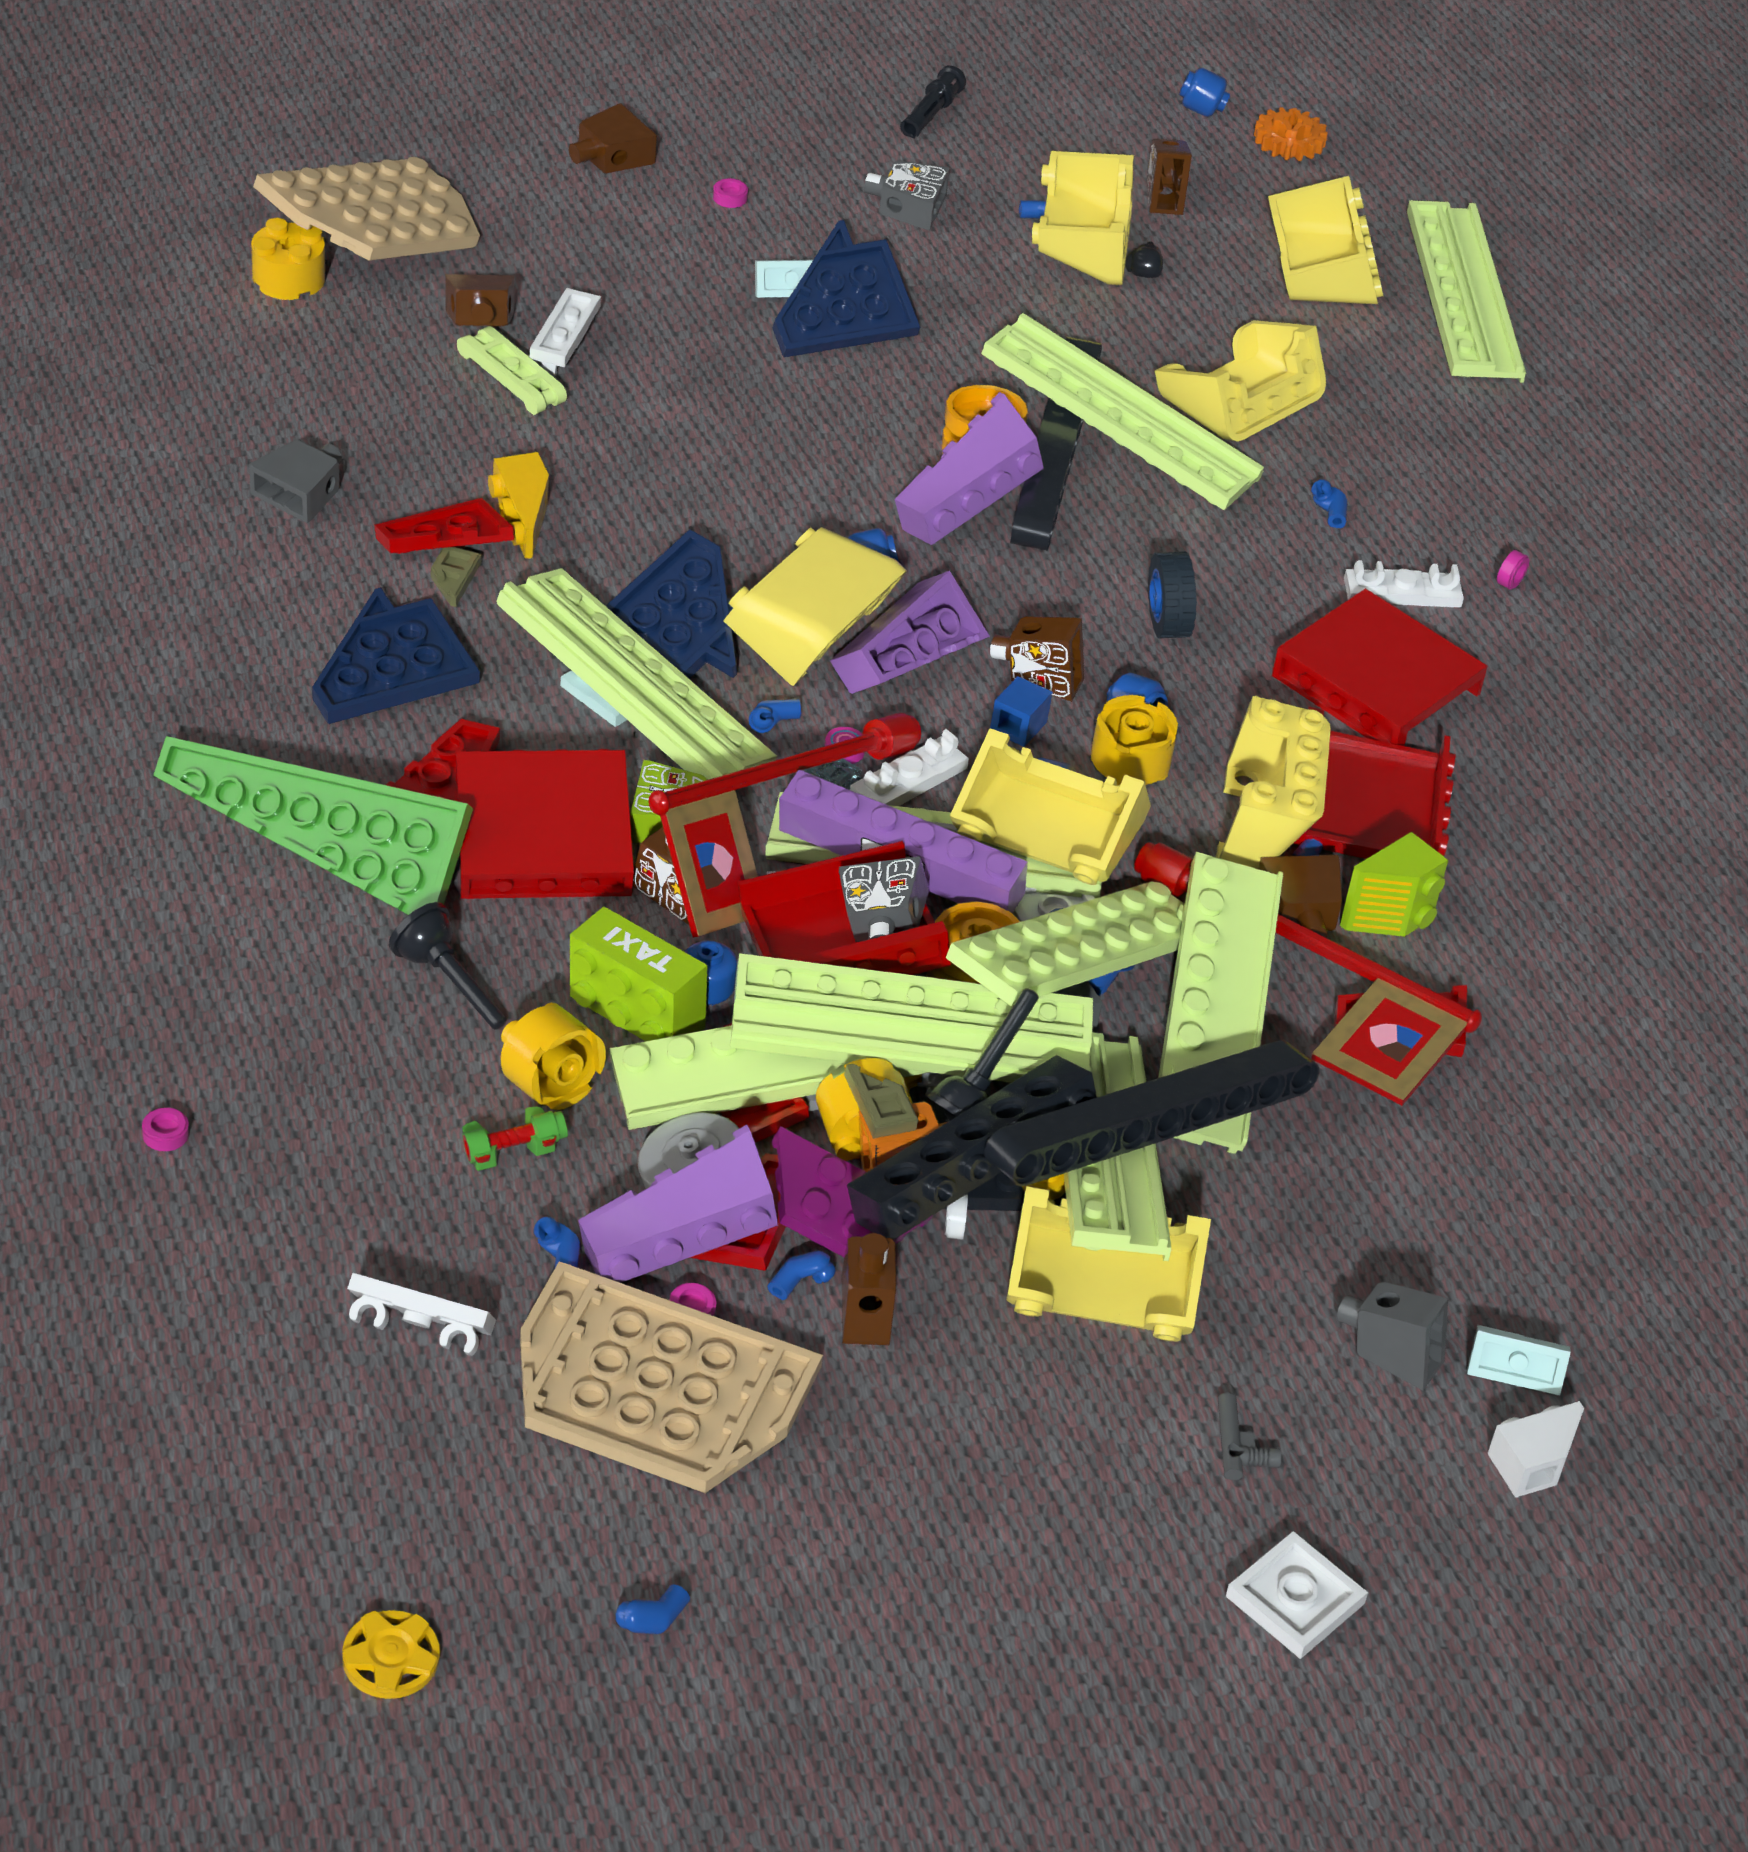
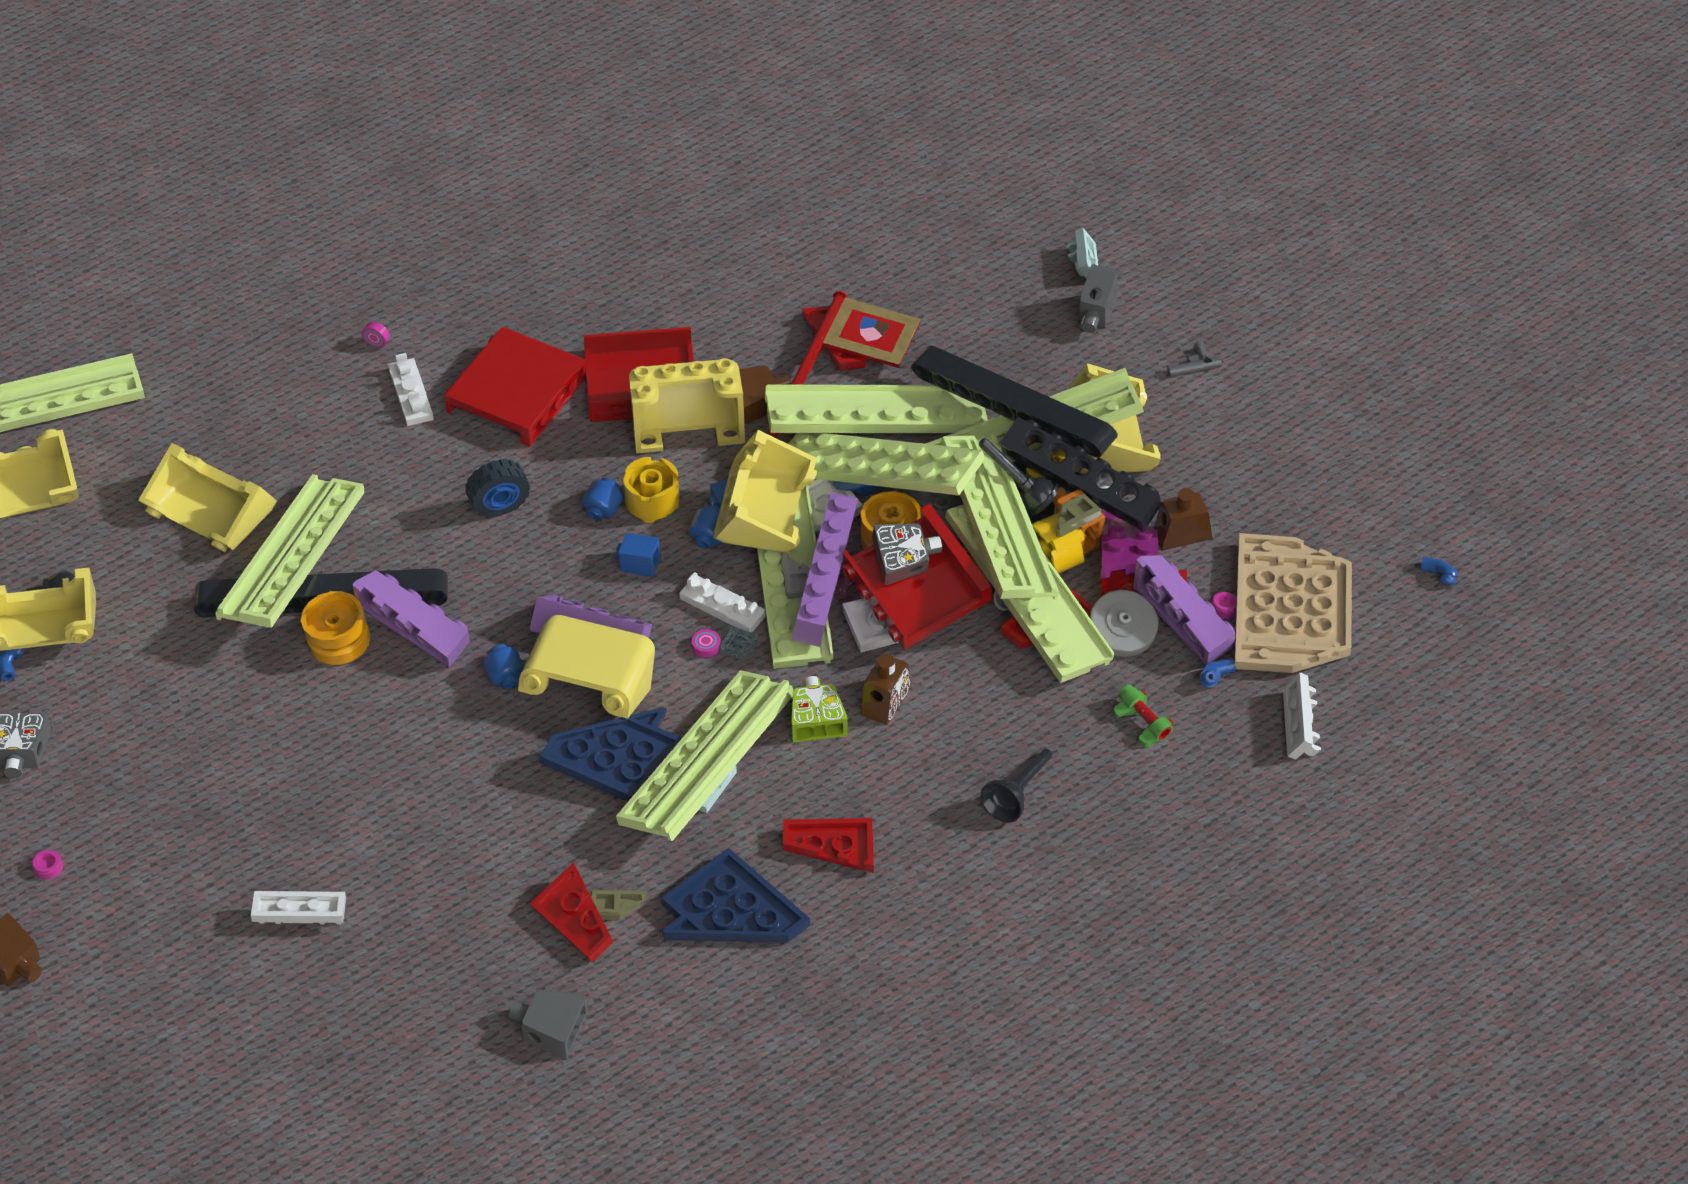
camera: 100 degrees left, 5 degrees up
(165, 1129) = (1219, 889): dark pink tile -> none
(288, 259) = (270, 1116): yellow brick -> none
(364, 832) = (927, 857): bright green wing -> none
(375, 207) = (181, 1071): tan plate -> none
(390, 1653) = (1524, 669): yellow wheel -> none
(480, 299) = (284, 969): reddish brown torso -> none
(513, 369) = (352, 936): yellowish green plate -> none
(522, 494) = (519, 877): yellow slope -> none
(545, 824) = (872, 762): red panel -> none
(551, 1056) = (1083, 701): yellow brick -> none
(636, 978) = (1002, 674): lime brick -> none
(708, 829) = (704, 616): flag -> none
(720, 969) = (968, 650): blue head -> none
(770, 712) = (693, 690): blue arm -> none
(778, 277) = (168, 788): light aqua plate -> none
(799, 1267) = (1172, 555): blue arm -> none
(846, 299) = (195, 741): dark blue wing -> none
(1045, 653) = (583, 554): reddish brown torso -> none
(1296, 1594) = (1289, 322): white plate -> none
(1332, 501) = (330, 437): blue arm -> none
(1395, 889) = (740, 337): lime slope -> none
(1535, 1447) = (1143, 241): white slope -> none

